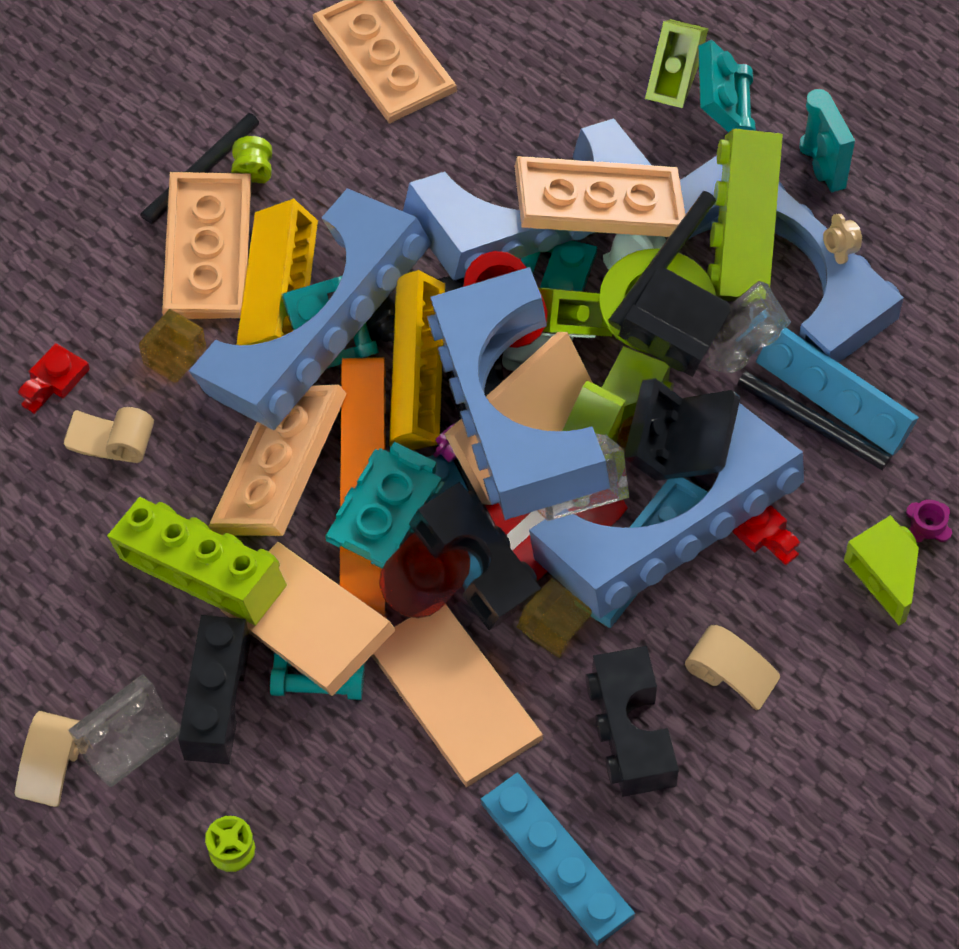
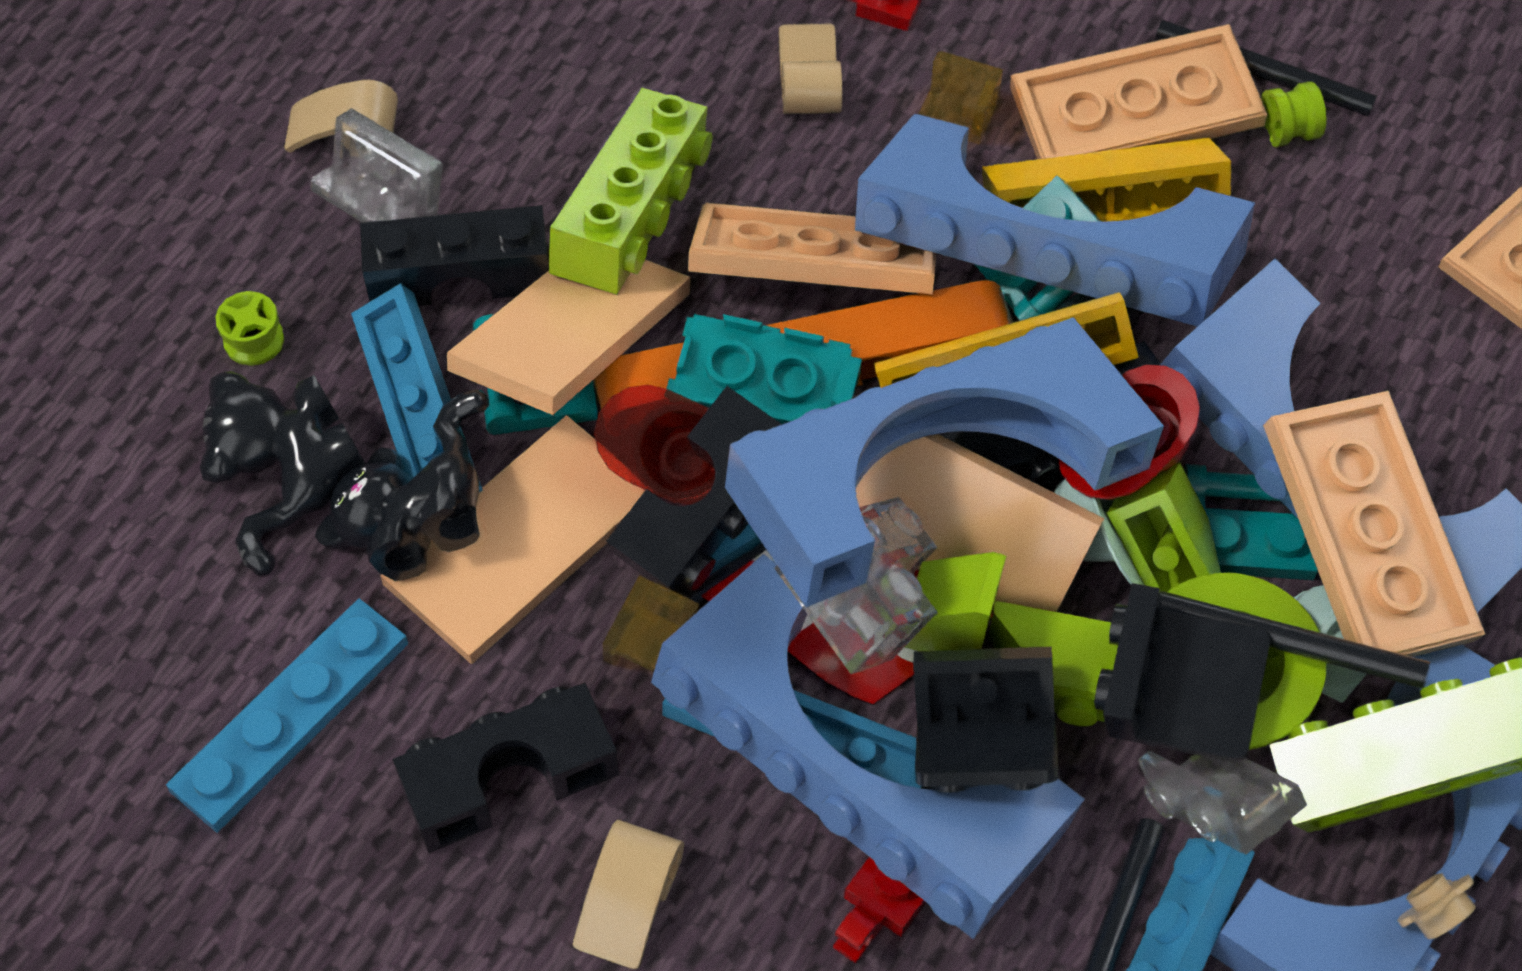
camera: 75 degrees right, 0 degrees up
(327, 737) = (404, 374): none -> dark azure plate
(328, 847) = (252, 429): none -> black animal
(414, 771) = (399, 516): none -> black animal

